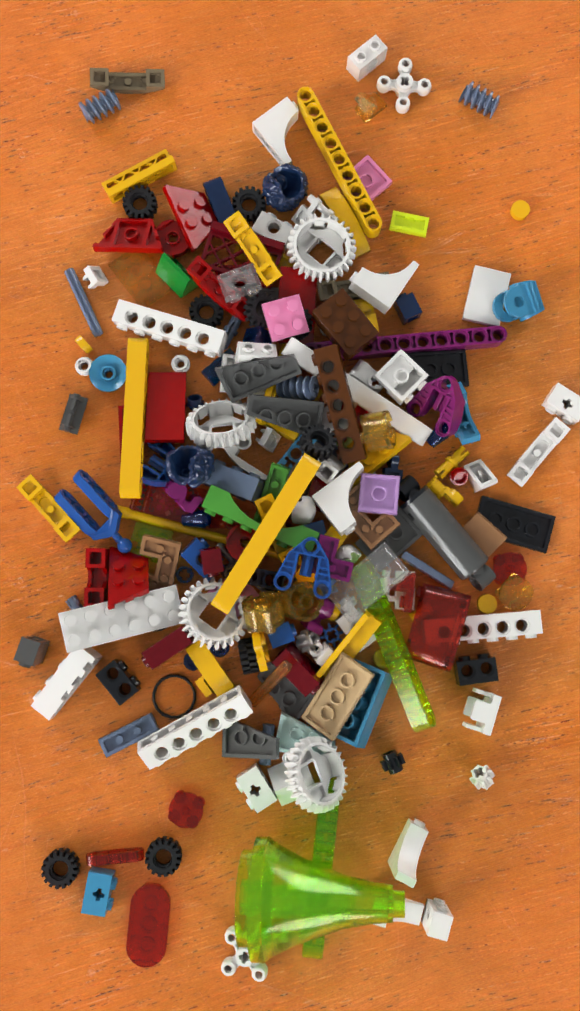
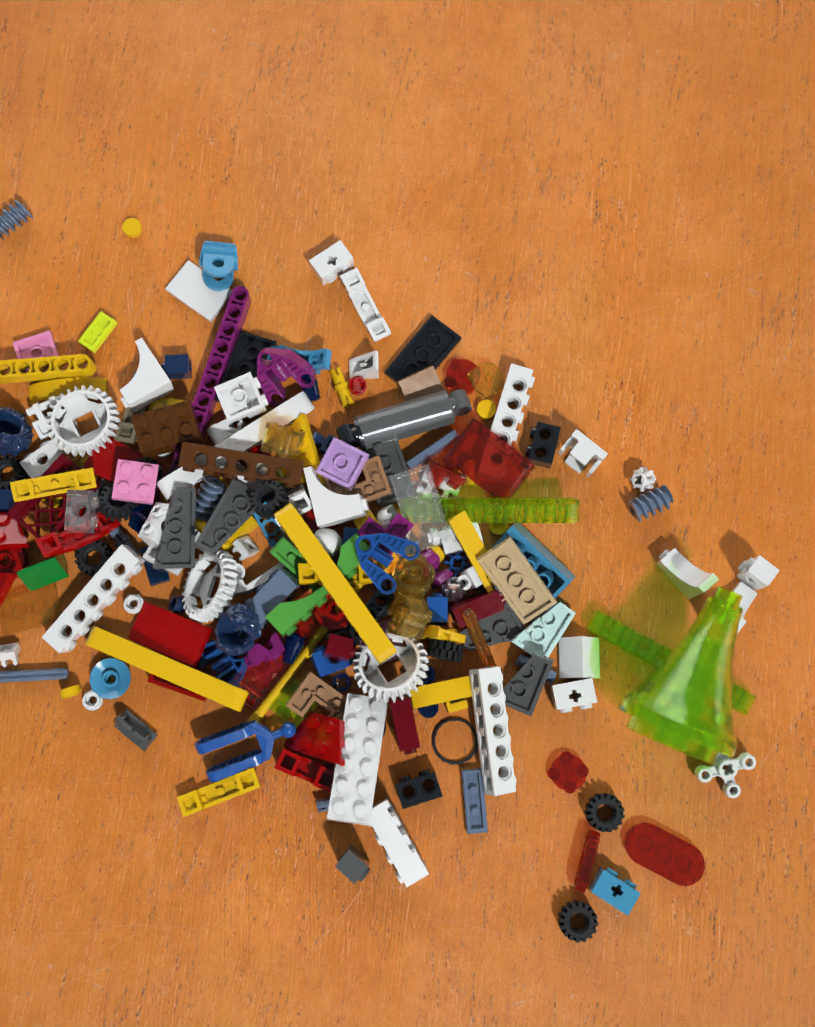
camera: 60 degrees left, 5 degrees down
(328, 765) = (579, 617): white piece -> none
(392, 762) = (598, 555): black gear -> none
(441, 490) = (369, 401): yellow connector -> none
(463, 792) = (650, 502): none -> sand blue piece

